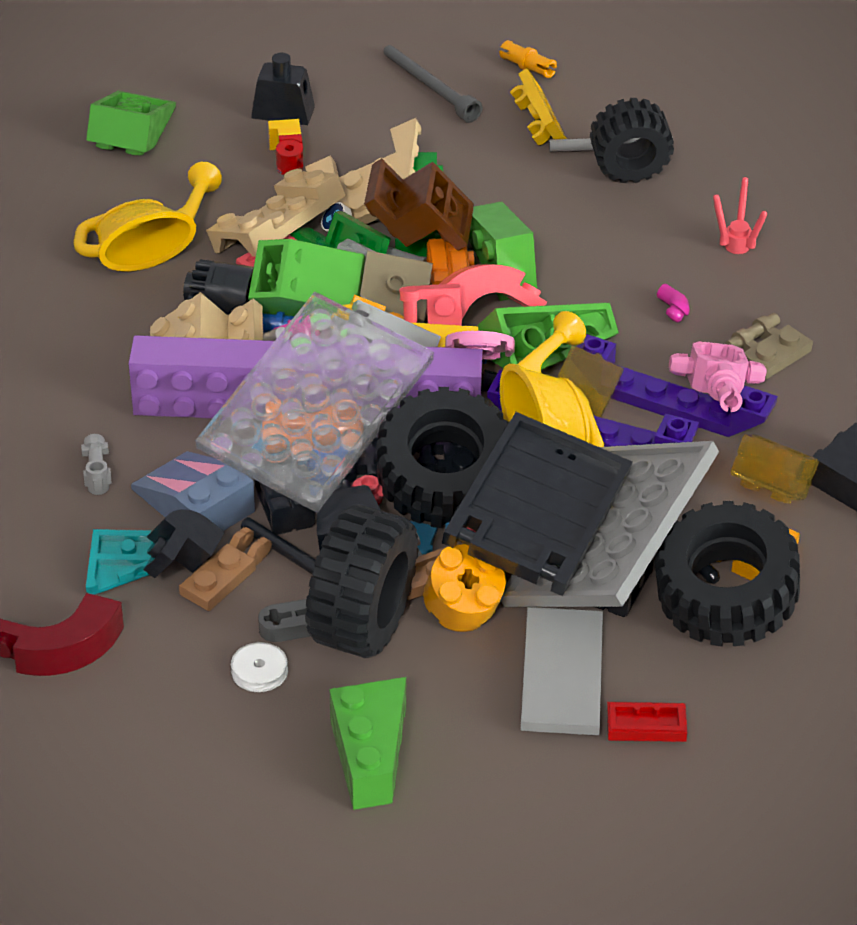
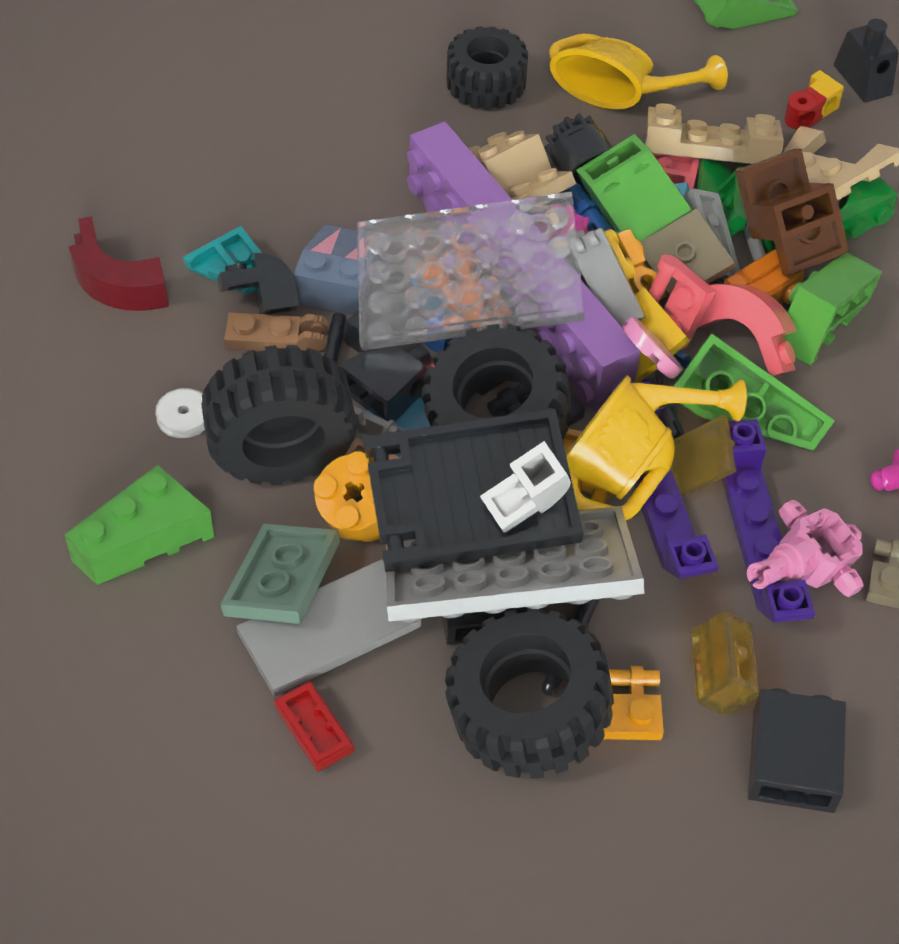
camera: 55 degrees right, 10 degrees up
(62, 296) = (486, 67): none -> black tyre
(97, 475) = (311, 194): light grey bar -> none
(496, 668) = (280, 573): none -> sand green plate
(581, 457) = (532, 488): none -> white brick

